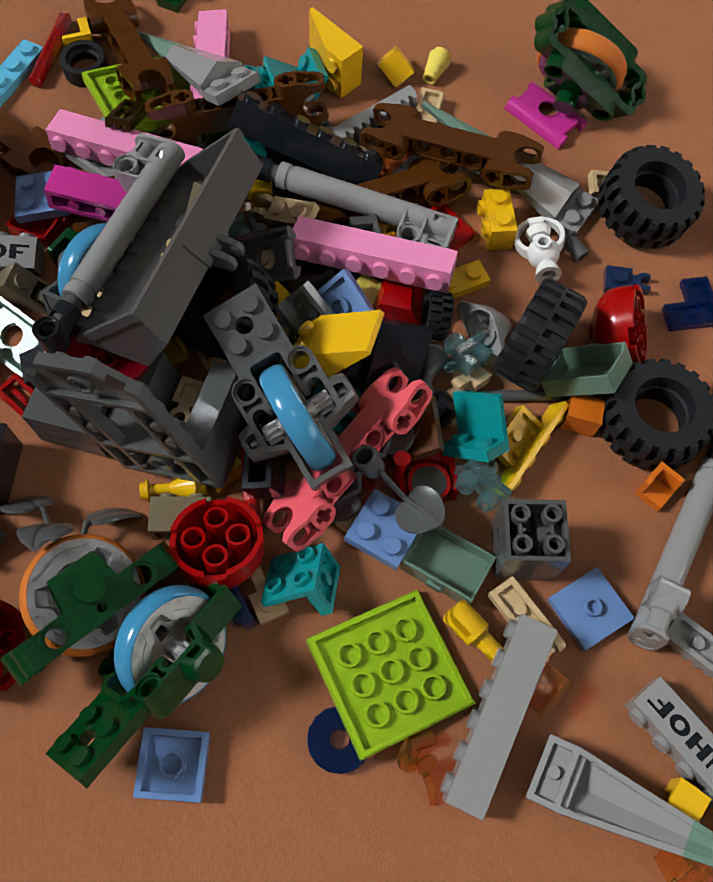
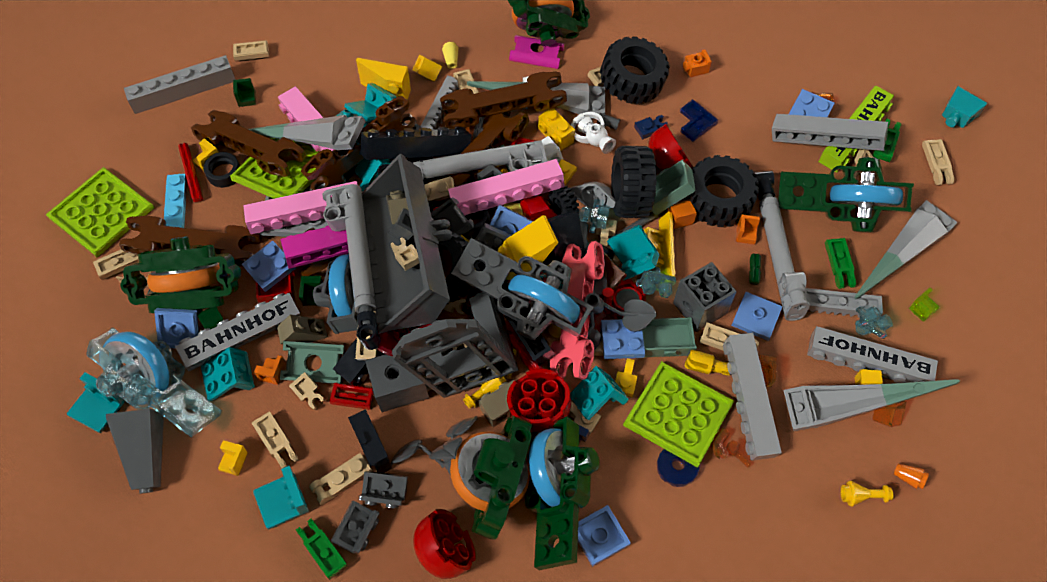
camera: 30 degrees left, 5 degrees down
(131, 117) = (291, 191): dark brown tile -> none
(353, 586) = (626, 380): none -> yellow plate
(468, 241) = (551, 149): none -> white panel
(632, 545) = (755, 271): none -> dark green piece

